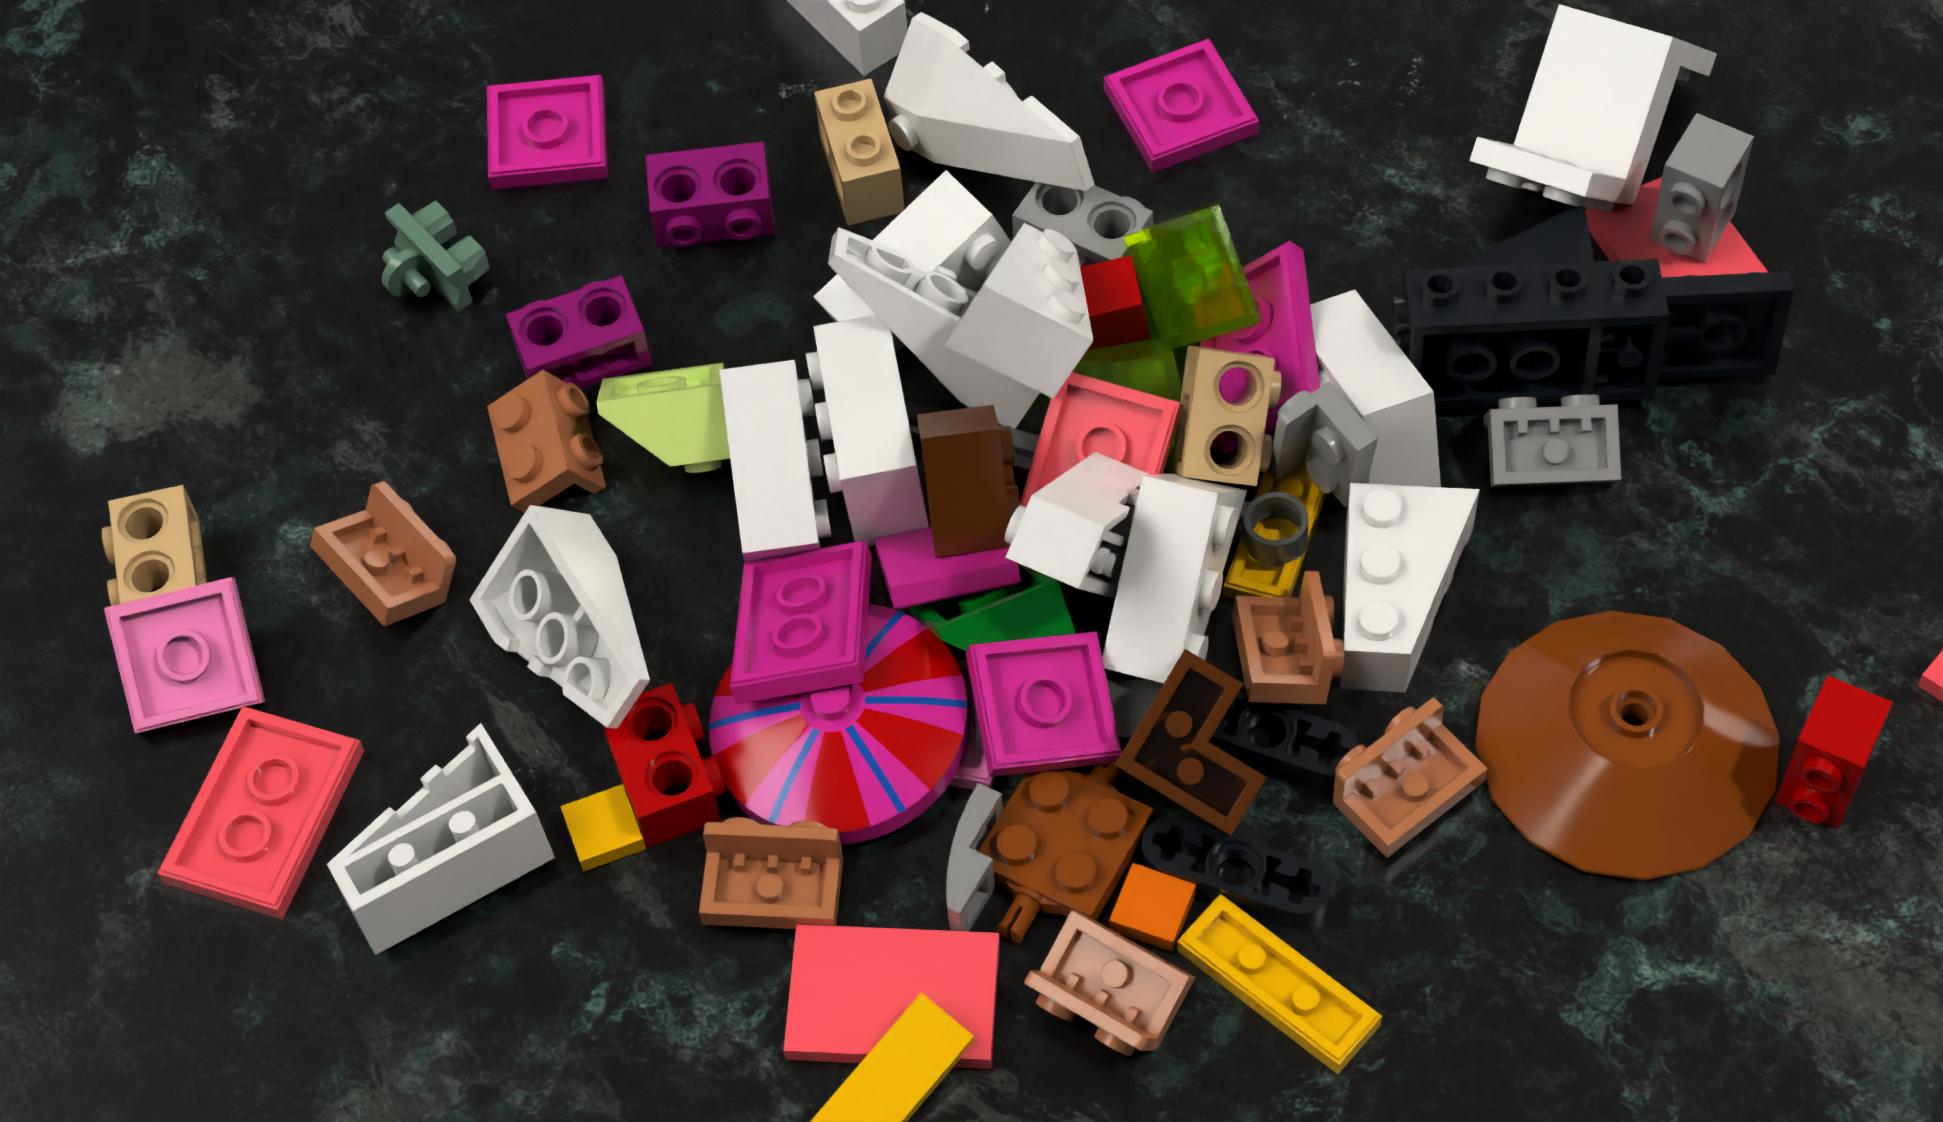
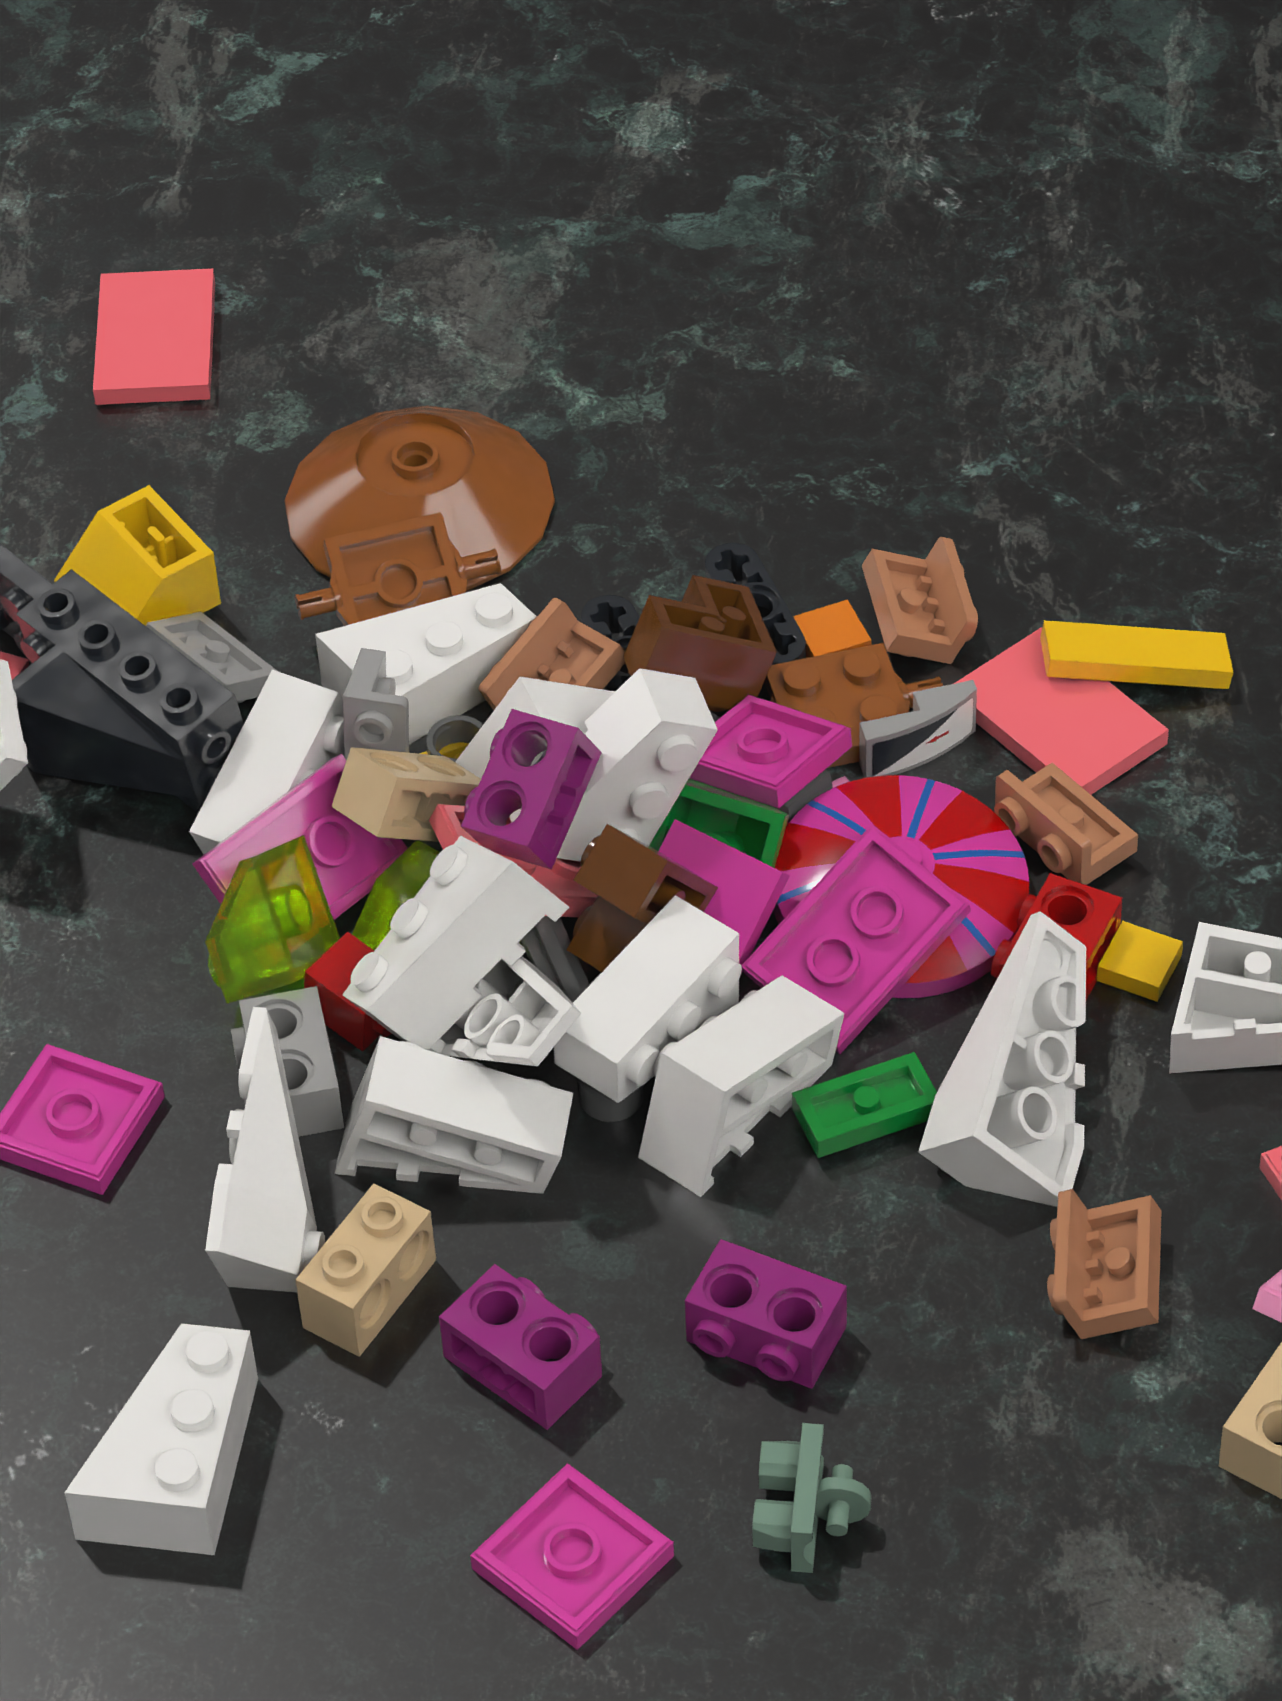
camera: 135 degrees left, 10 degrees down
(545, 440) = (888, 1257): nougat bracket -> none
(671, 414) = (758, 1184): yellowish green slope -> none
(674, 535) = (864, 1104): none -> green plate
(1096, 421) = (544, 791): none -> magenta brick
(1279, 983) = (807, 541): yellow tile -> none
(1405, 778) = (585, 563): nougat bracket -> none
(1505, 614) = (393, 570): none -> dark orange plate
(1699, 463) = (146, 559): none -> yellow slope
(1832, 752) = (340, 358): red brick -> none

